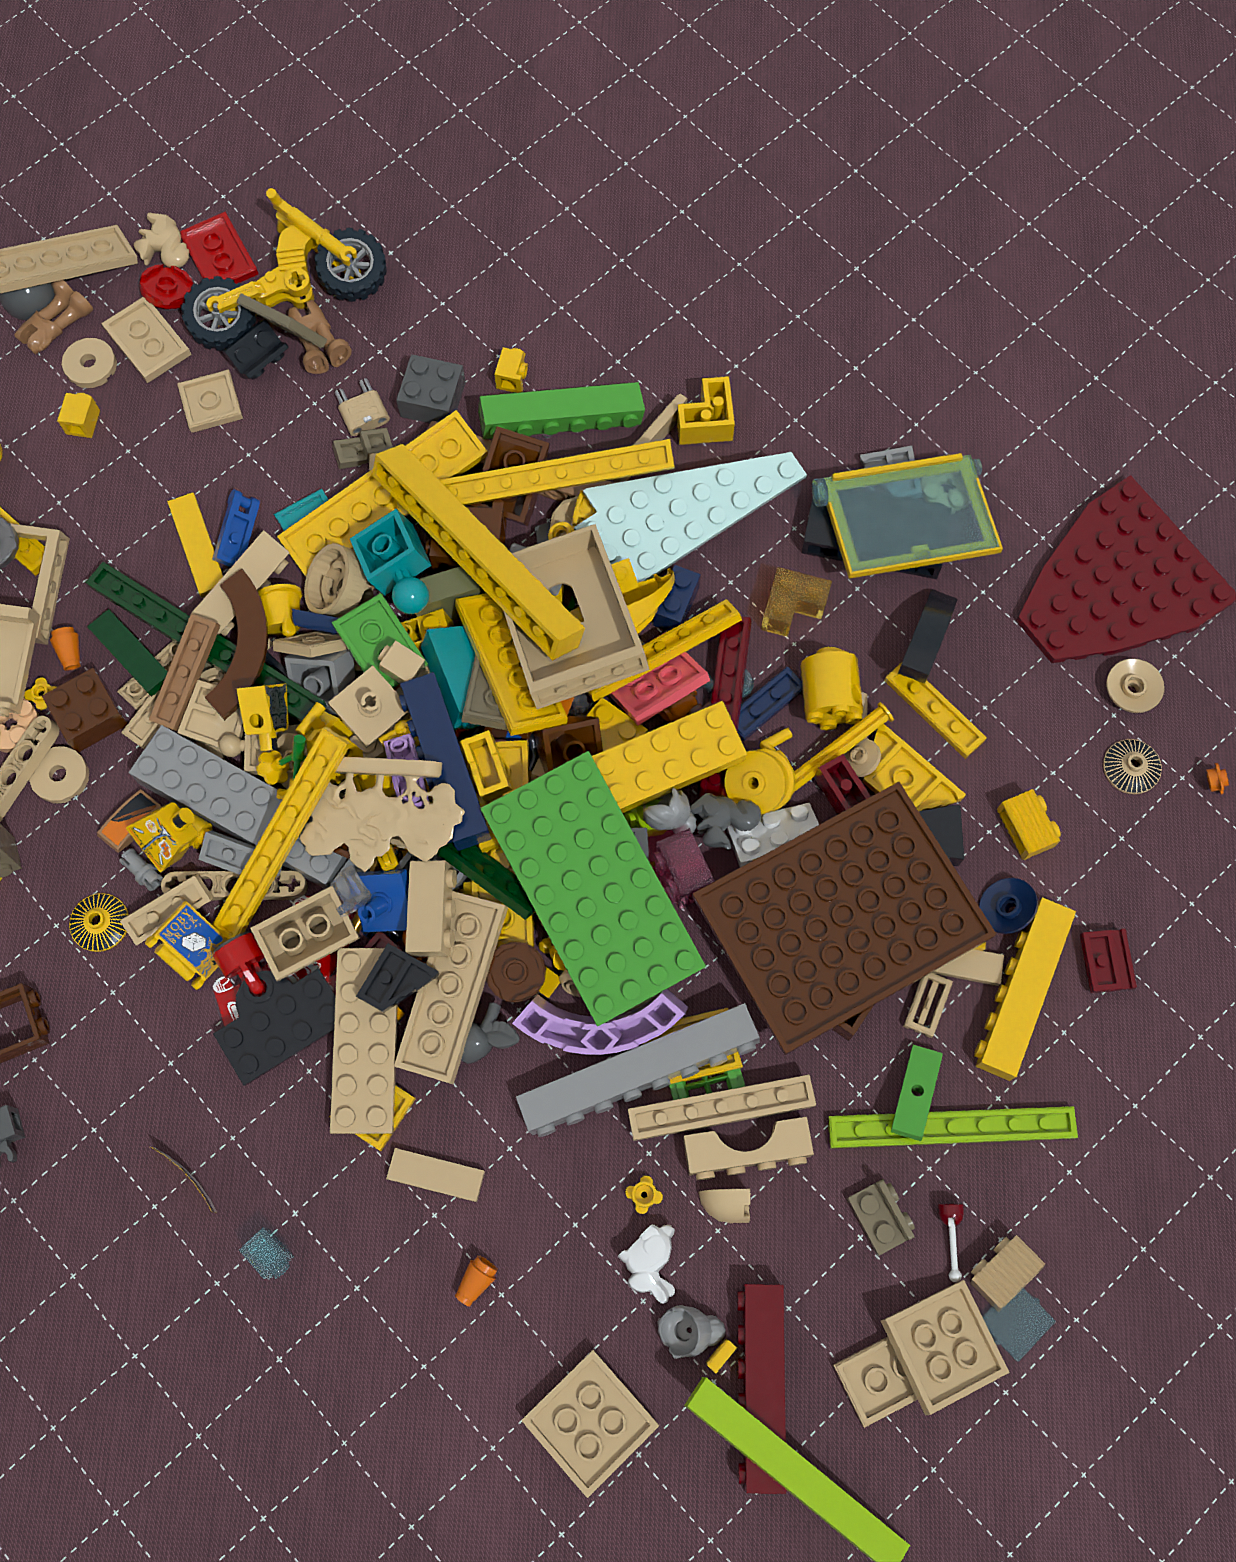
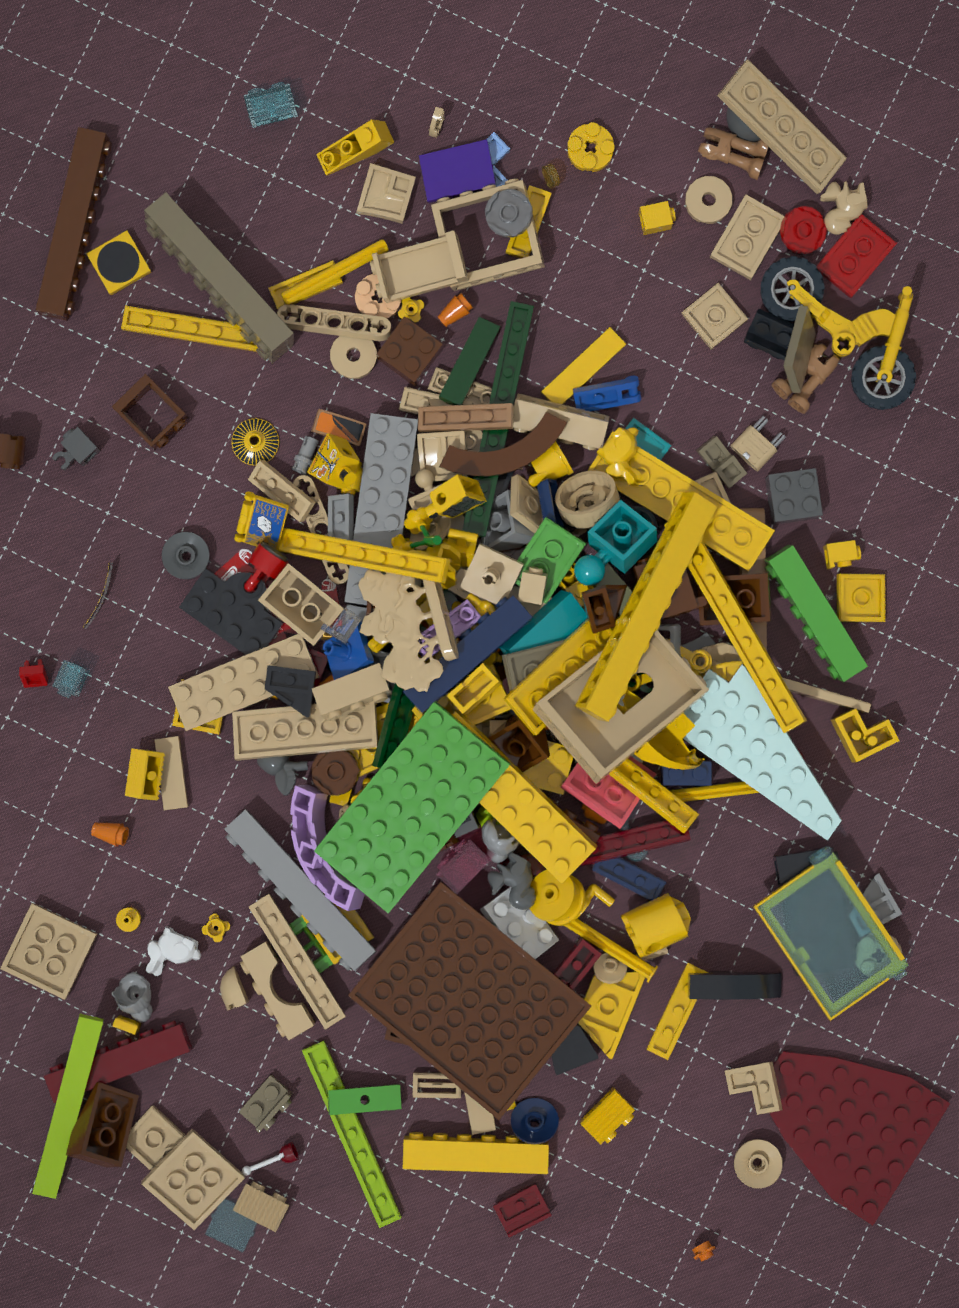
camera: 70 degrees right, 15 degrees up
(175, 1043) = (173, 555): none -> dark grey dish
(241, 1300) = (33, 675): none -> red tile
(301, 533) = (618, 453): none -> yellow animal
(421, 1205) = (144, 774): none -> yellow brick
(454, 600) = (603, 606): none -> reddish brown slope
(564, 367) = (861, 597): none -> yellow tile
(600, 1302) = (133, 916): none -> yellow tile
(710, 574) = (713, 791): none -> yellow axle
(792, 594) = (727, 861): clear yellow brick -> none
(840, 1438) = (103, 1126): none -> reddish brown slope
(1043, 646) = (759, 1080): none -> tan plate
(1124, 775) = (686, 1170): dish -> none

